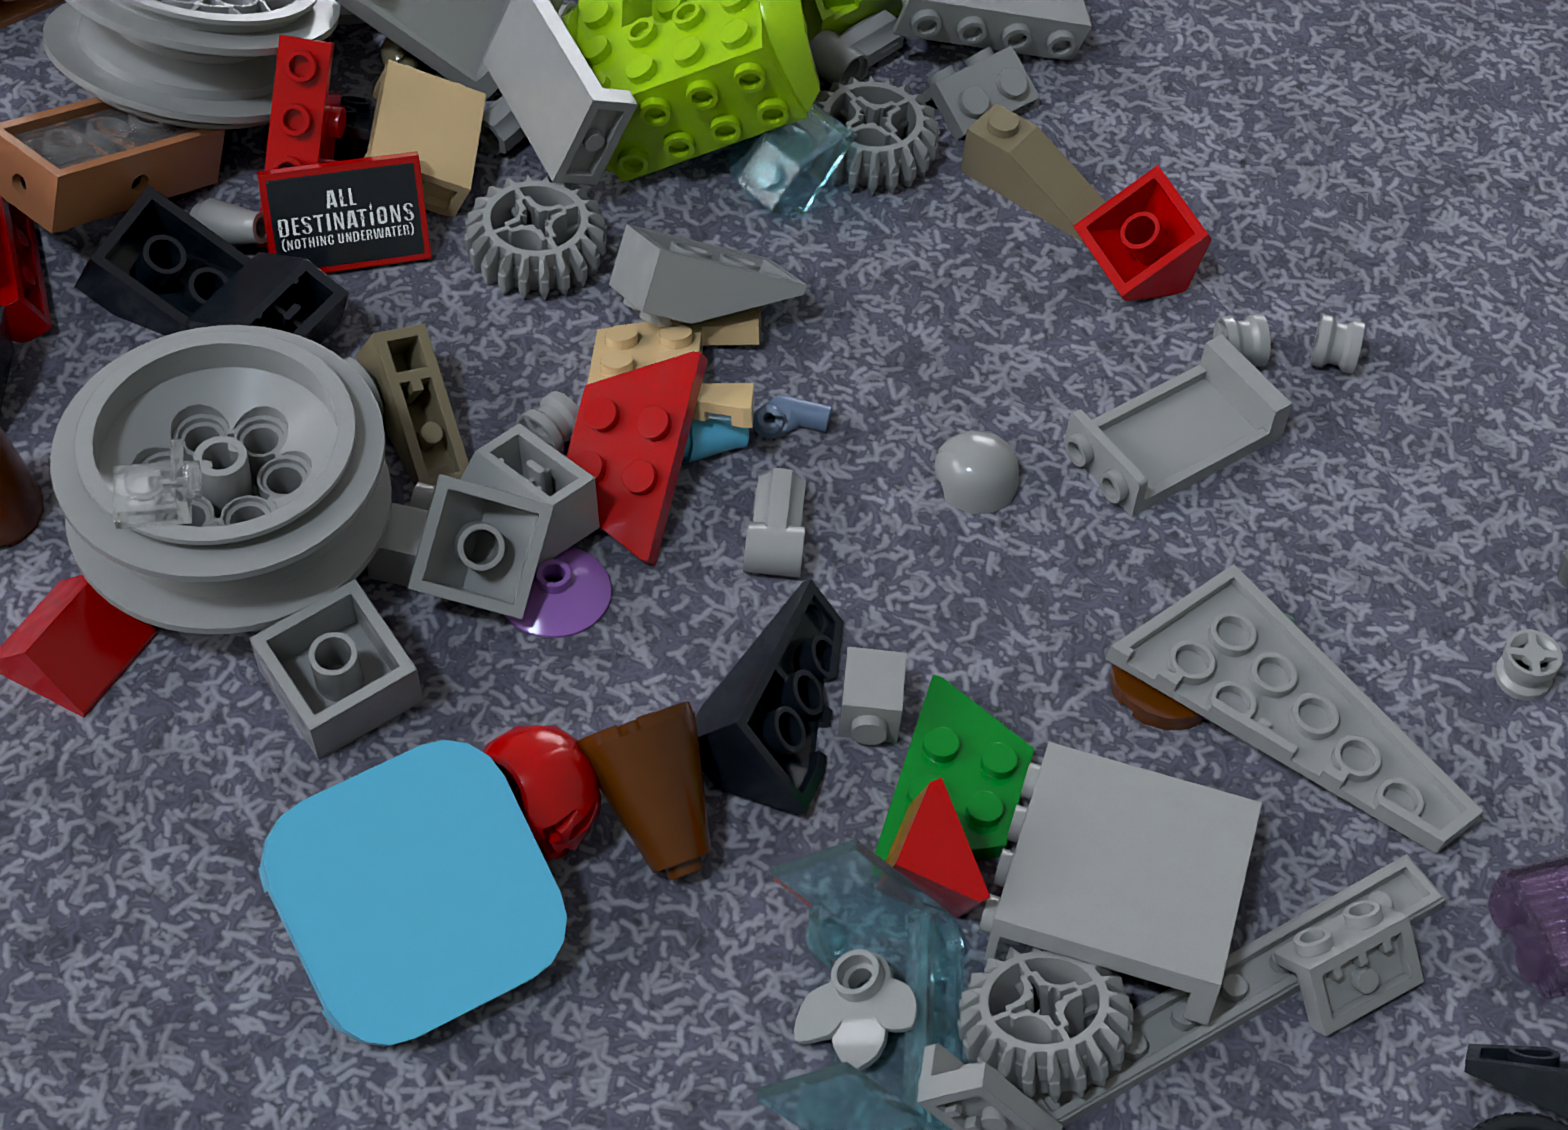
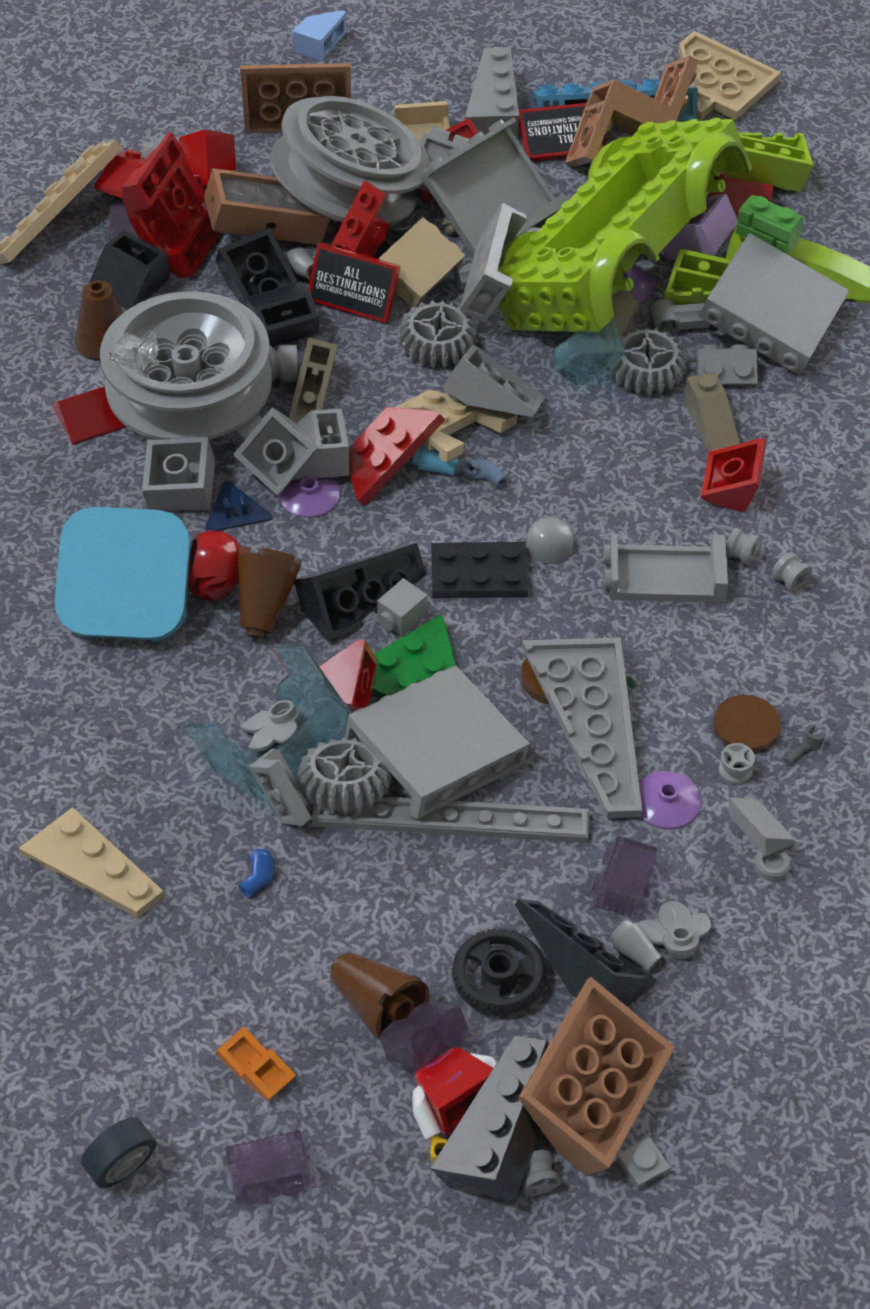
camera: 40 degrees right, 0 degrees up
(461, 681) = (235, 510): none -> dark blue piece
(552, 420) = (364, 418): light grey wheel -> none
(776, 532) = (424, 520): light grey piece -> none
(917, 573) = (479, 570): none -> black plate
(1352, 964) = (510, 835): light grey bracket -> none
(1478, 598) = (748, 722): none -> reddish brown tile
(1502, 792) = (672, 810): none -> medium lavender dish

